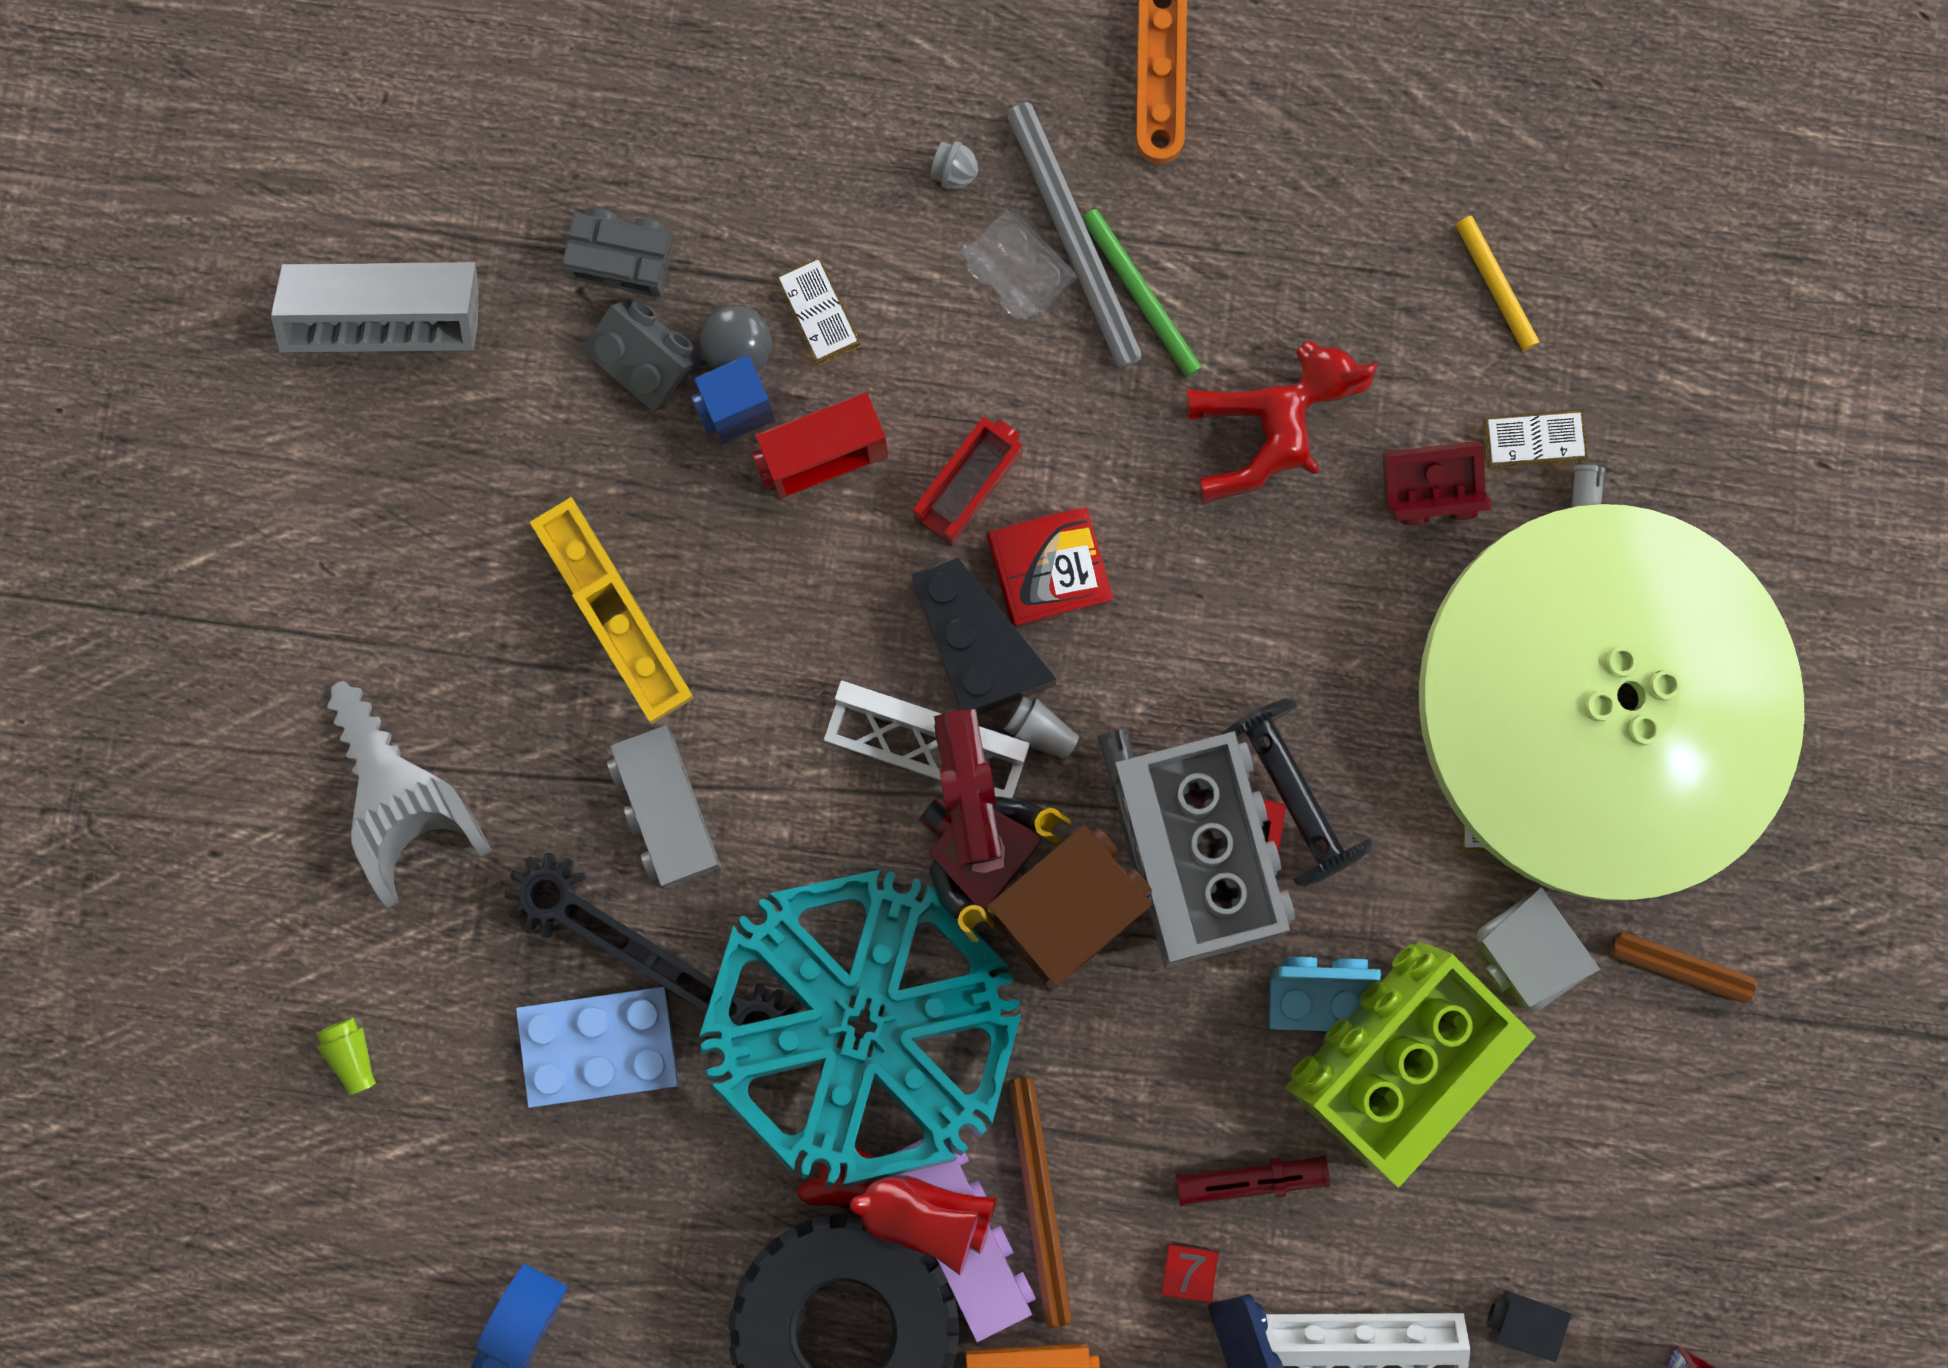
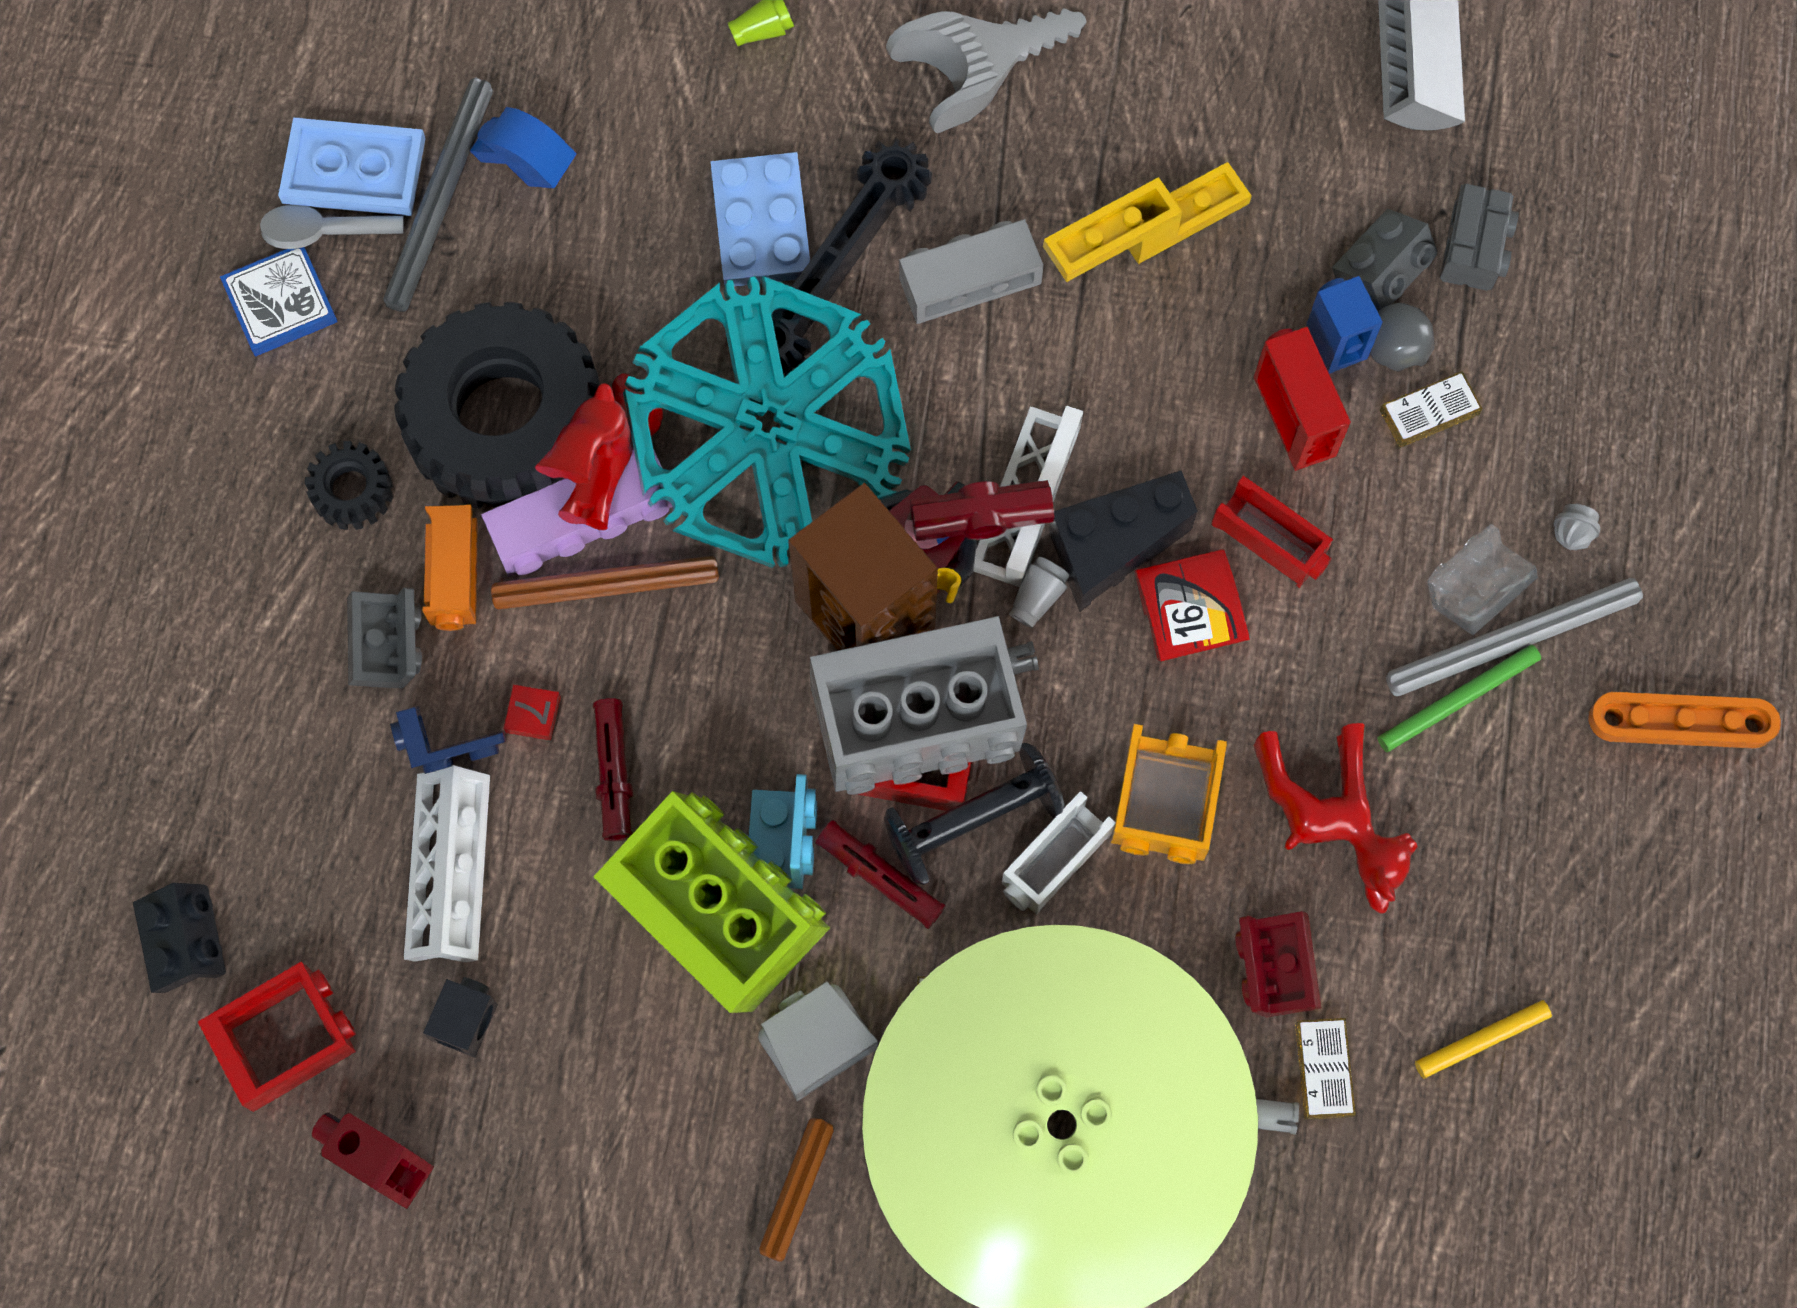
camera: 90 degrees right, 10 degrees down
(1262, 591) = (1168, 797): none -> window
(1331, 707) = (1055, 855): none -> white window
(1353, 894) = (836, 839): none -> dark red pin

